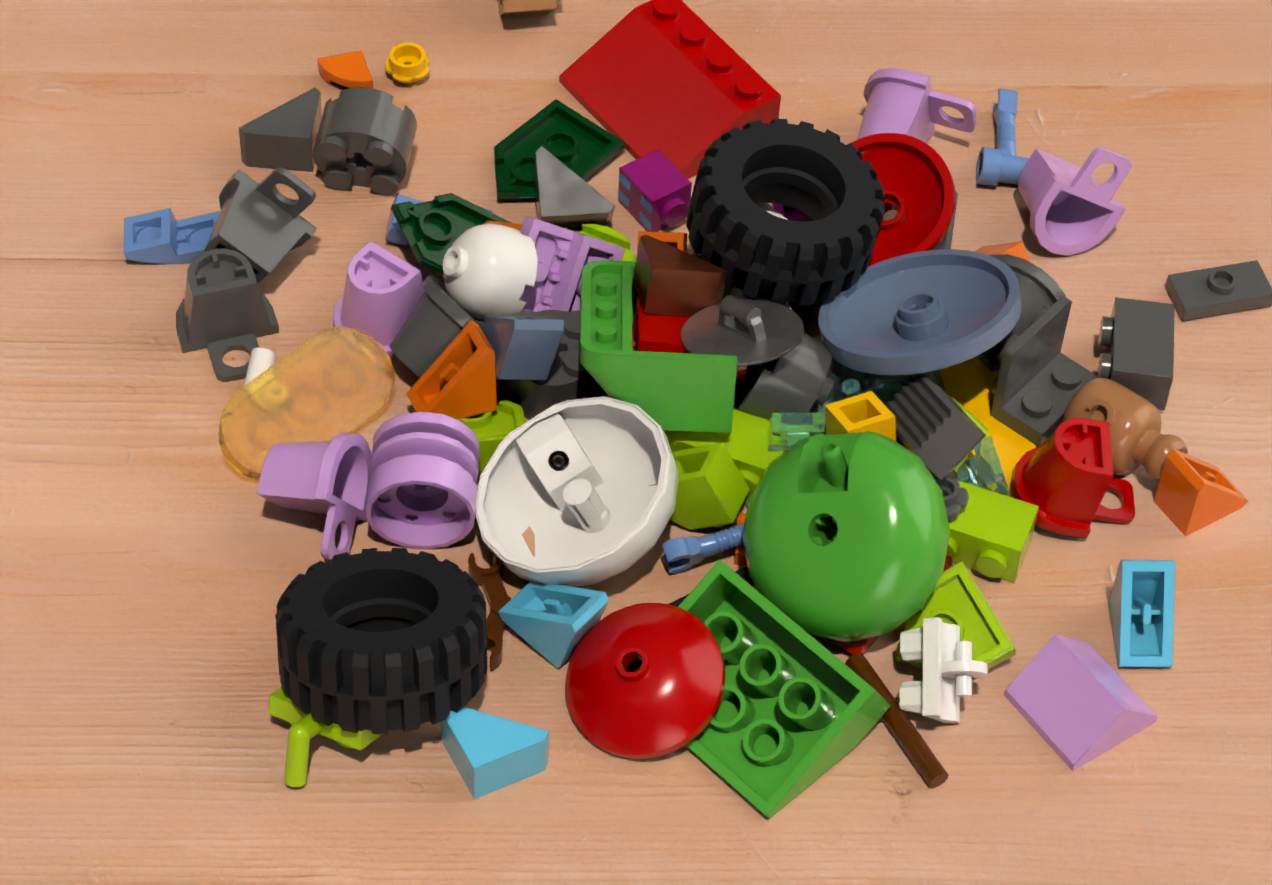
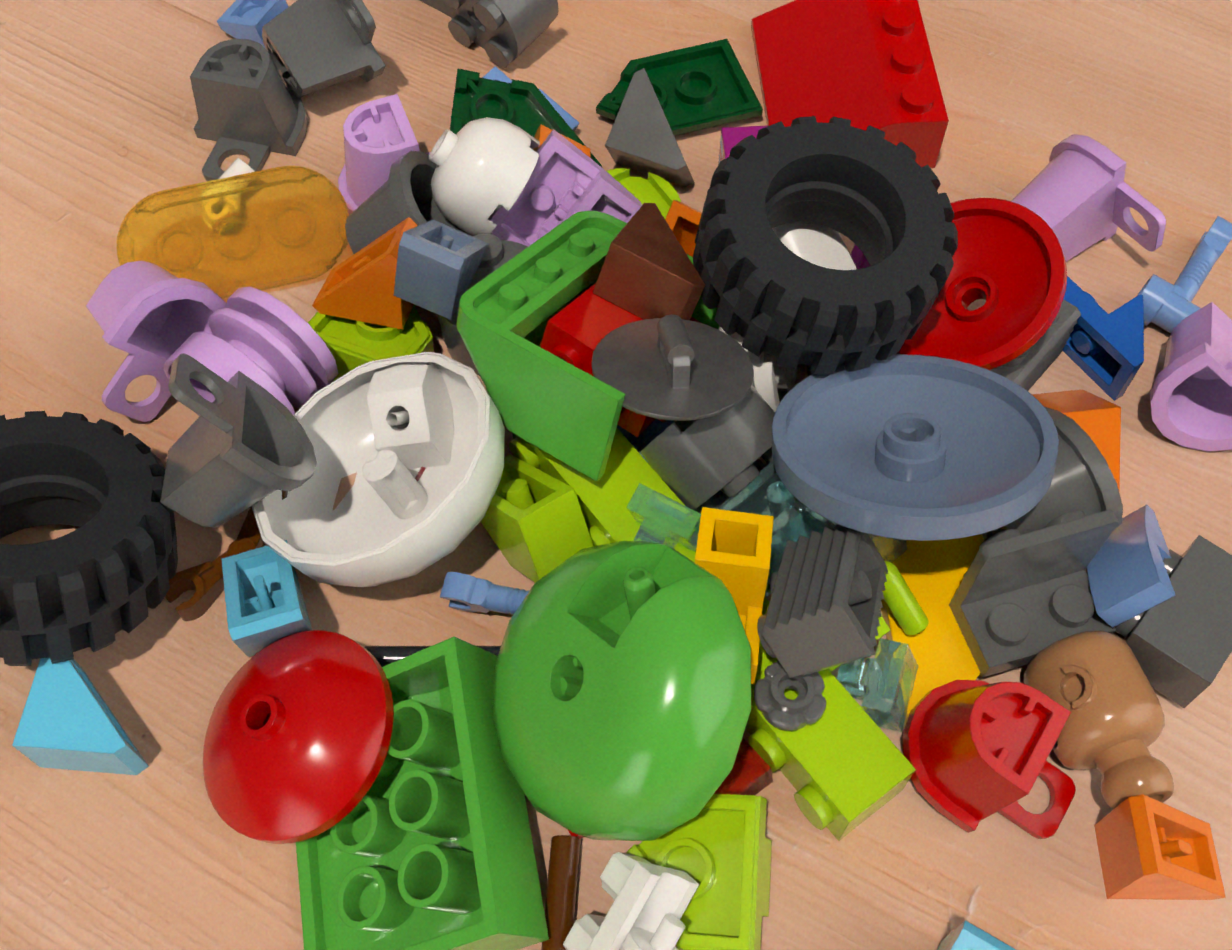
camera: 35 degrees right, 10 degrees up
(481, 523) = (235, 449): none -> dark grey container
(984, 208) = (1106, 344): none -> blue slope
(1089, 338) = (1130, 569): none -> medium blue slope

